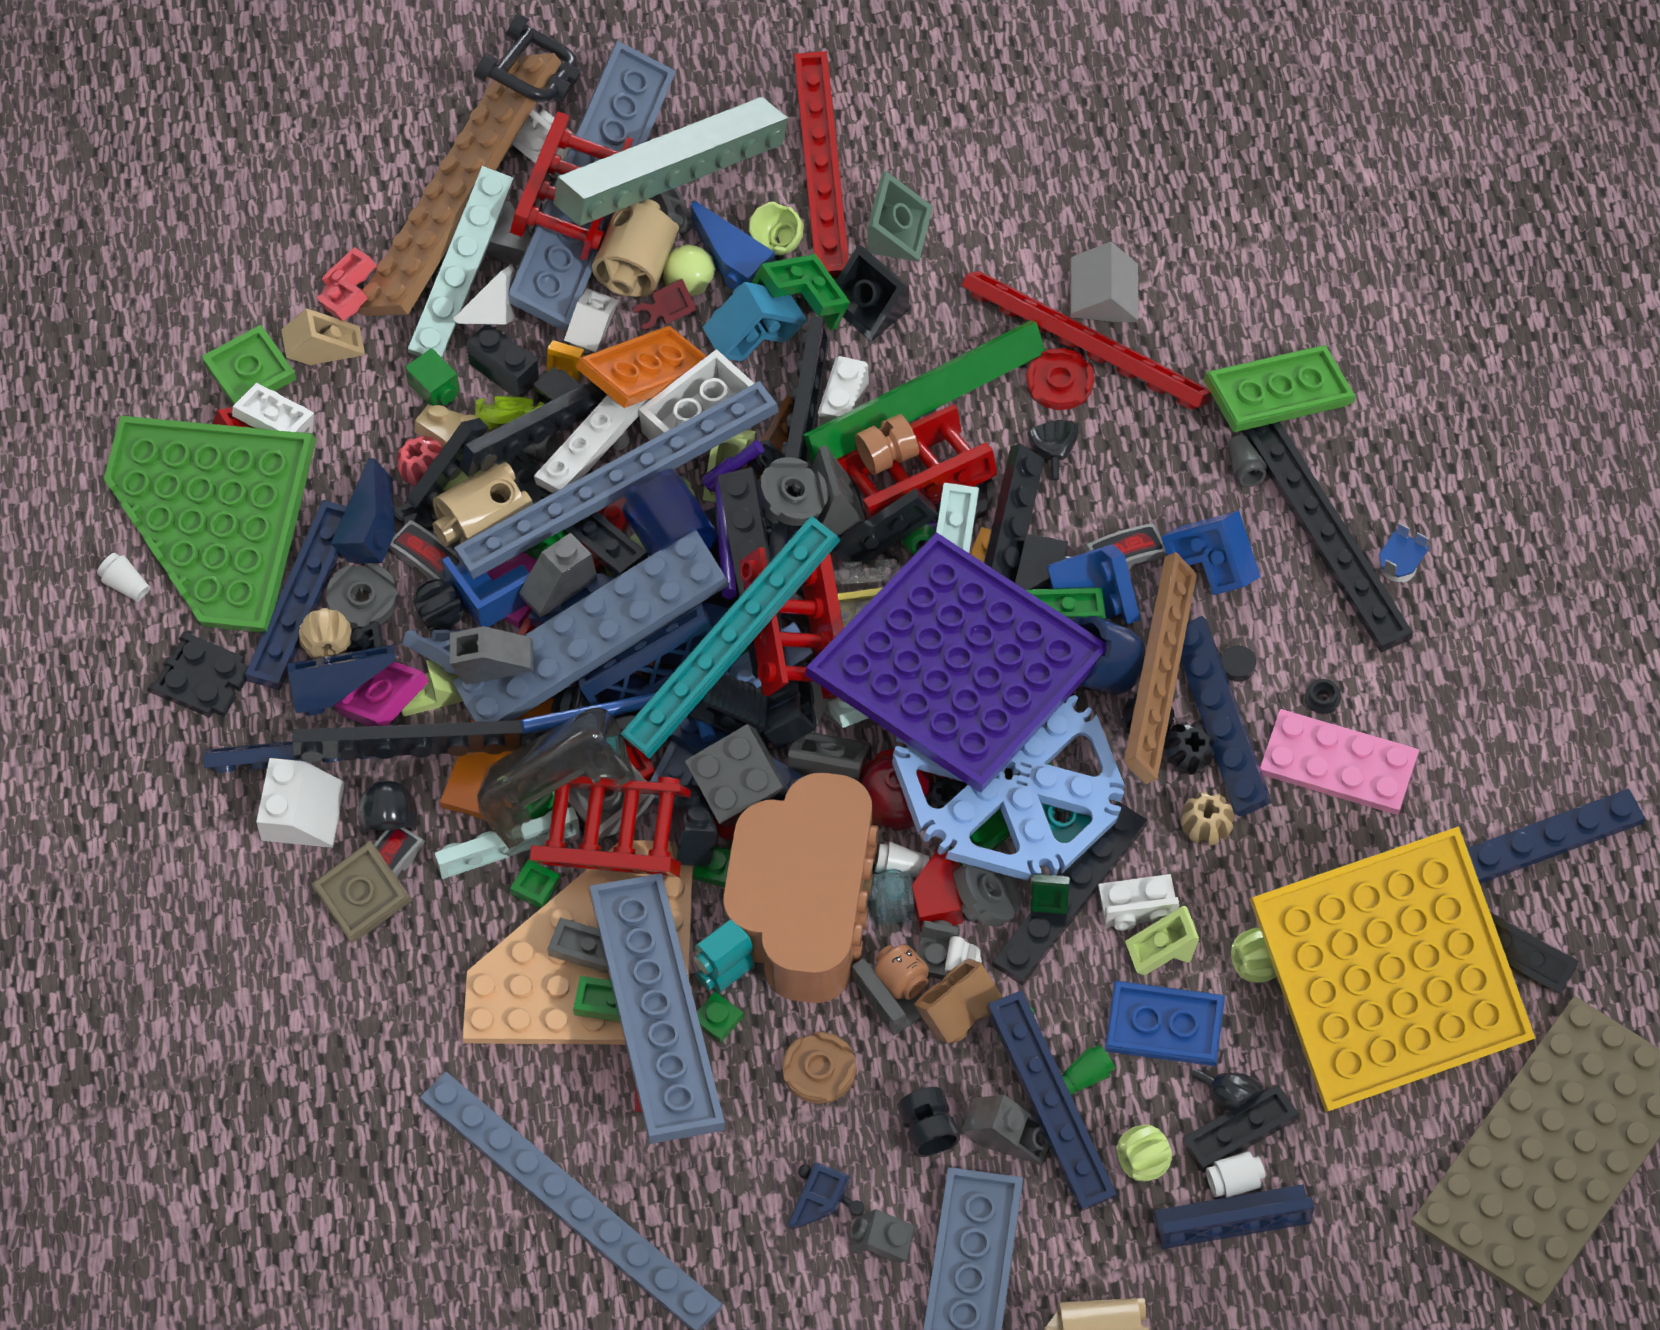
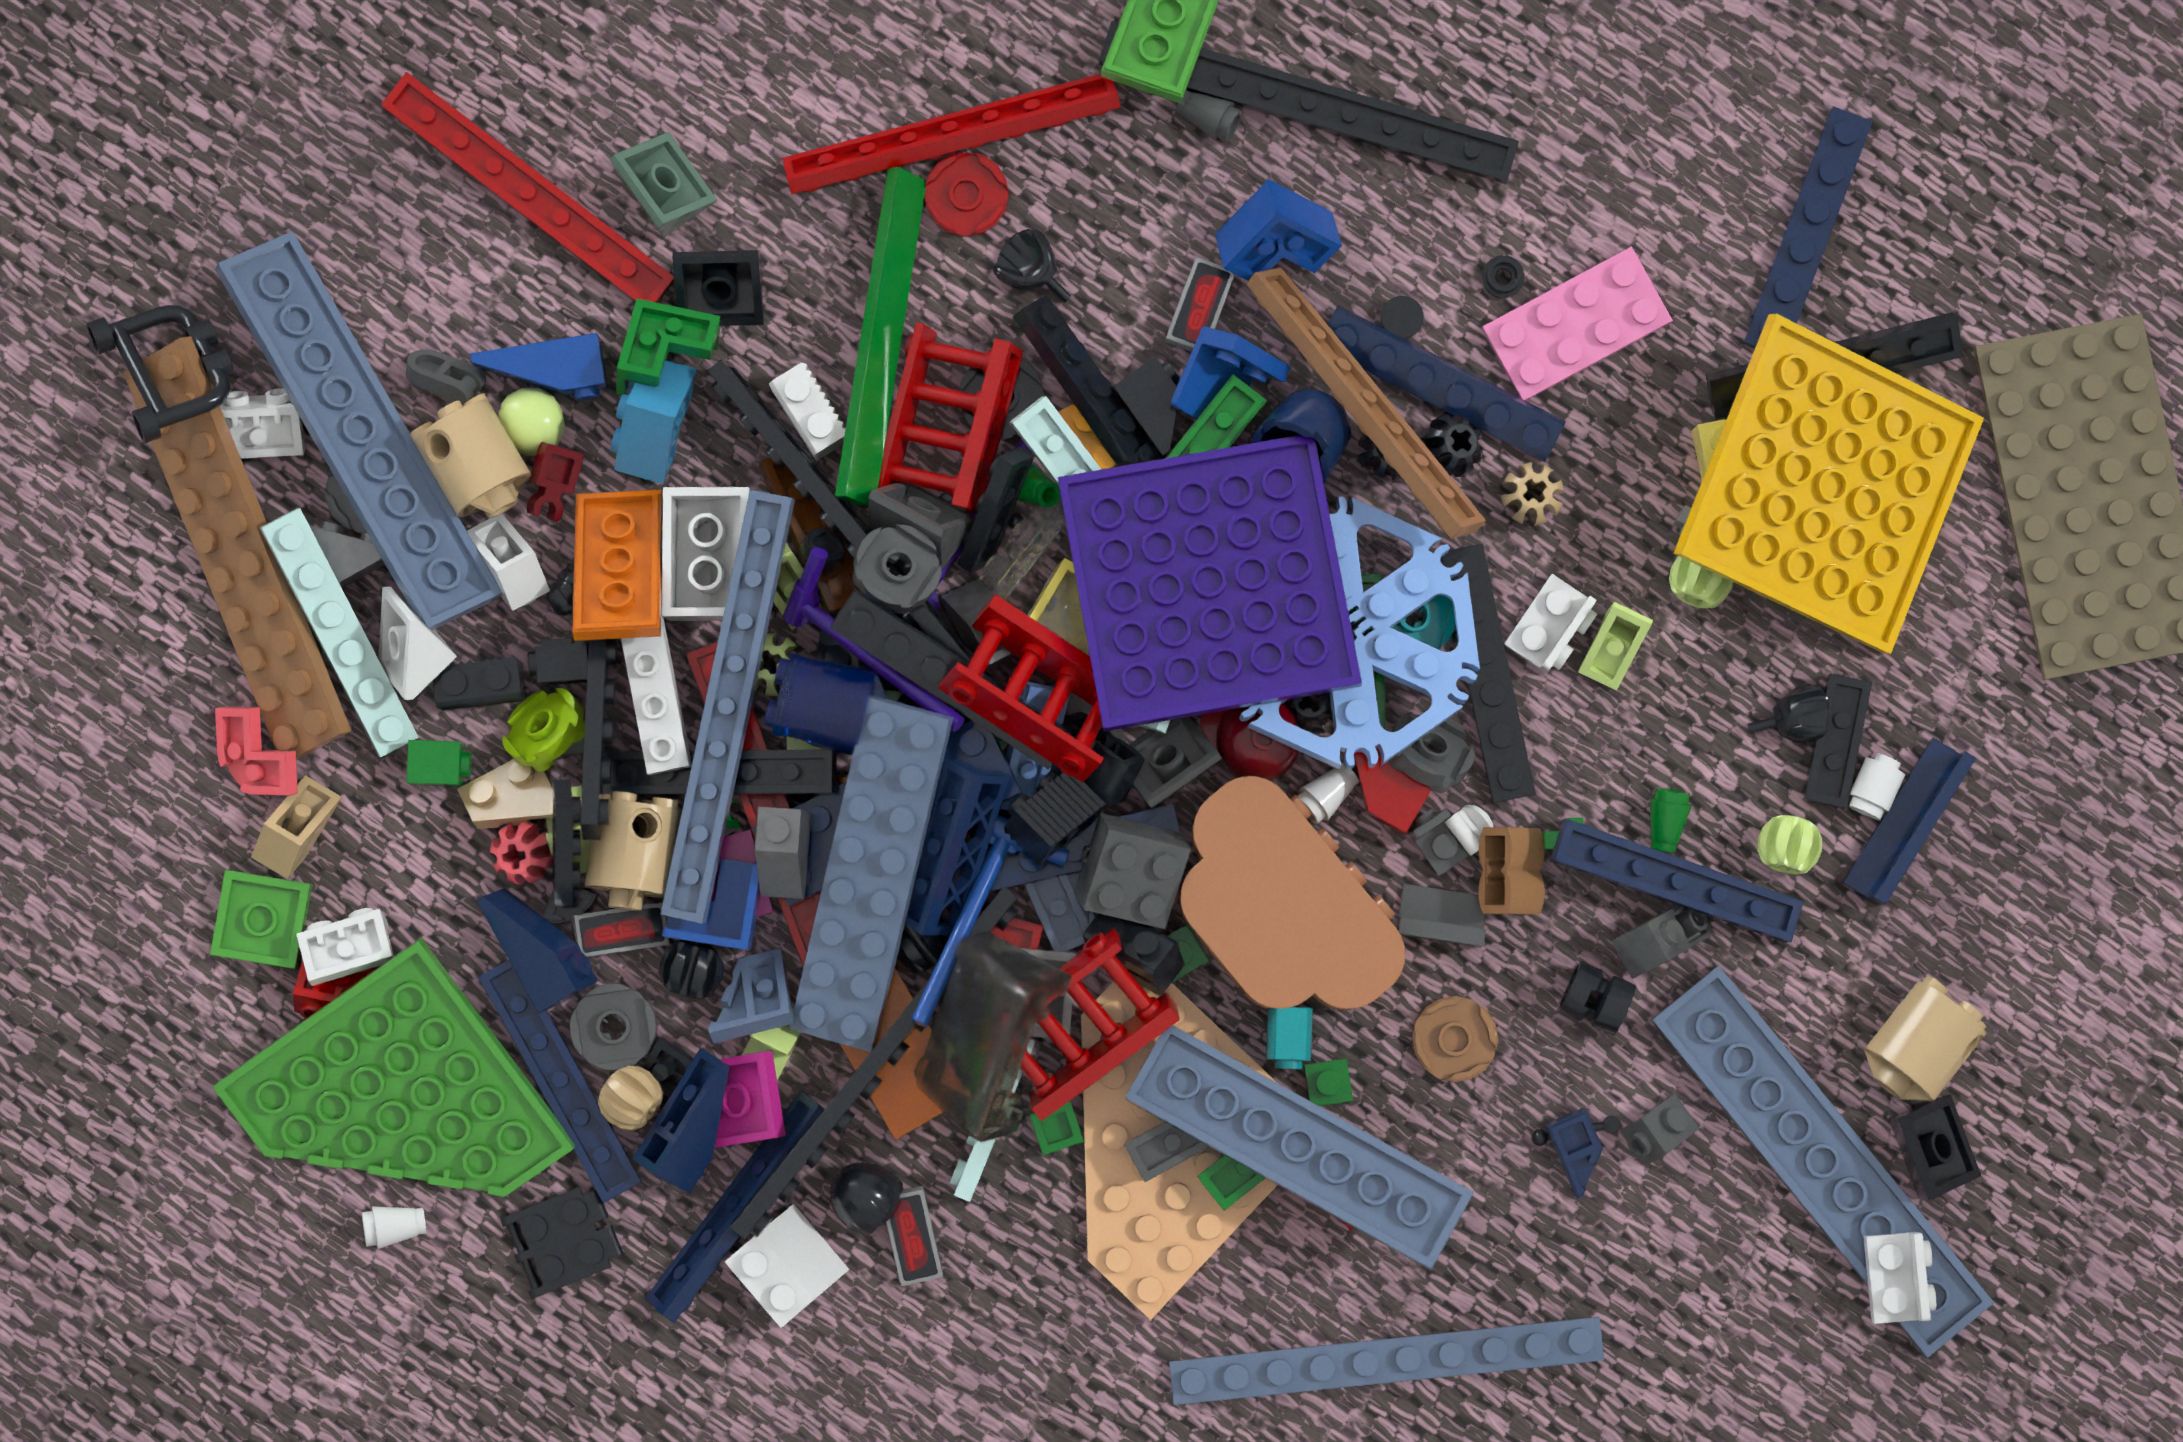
camera: 50 degrees left, 25 degrees up
(361, 892) = (926, 1286): dark tan tile -> none
(489, 654) = (817, 986): flat silver slope -> none
(539, 188) = (336, 495): red fence -> none
(565, 358) = (530, 625): light orange plate -> none
(669, 161) = (420, 346): brick -> none
(730, 637) = (1015, 769): teal tile -> none
(776, 220) = (575, 290): yellowish green hair -> none
(884, 445) = (912, 428): nougat wheel -> none
(893, 897) = (1359, 832): clear light blue brick -> none
(902, 971) = (1440, 894): nougat head -> none
(1050, 894) = (1489, 703): dark green tile -> none
(1104, 285) = (908, 64): light grey slope -> none
(1165, 1023) = (1682, 709): blue tile -> none
(1402, 554) = (1433, 73): blue piece -> none

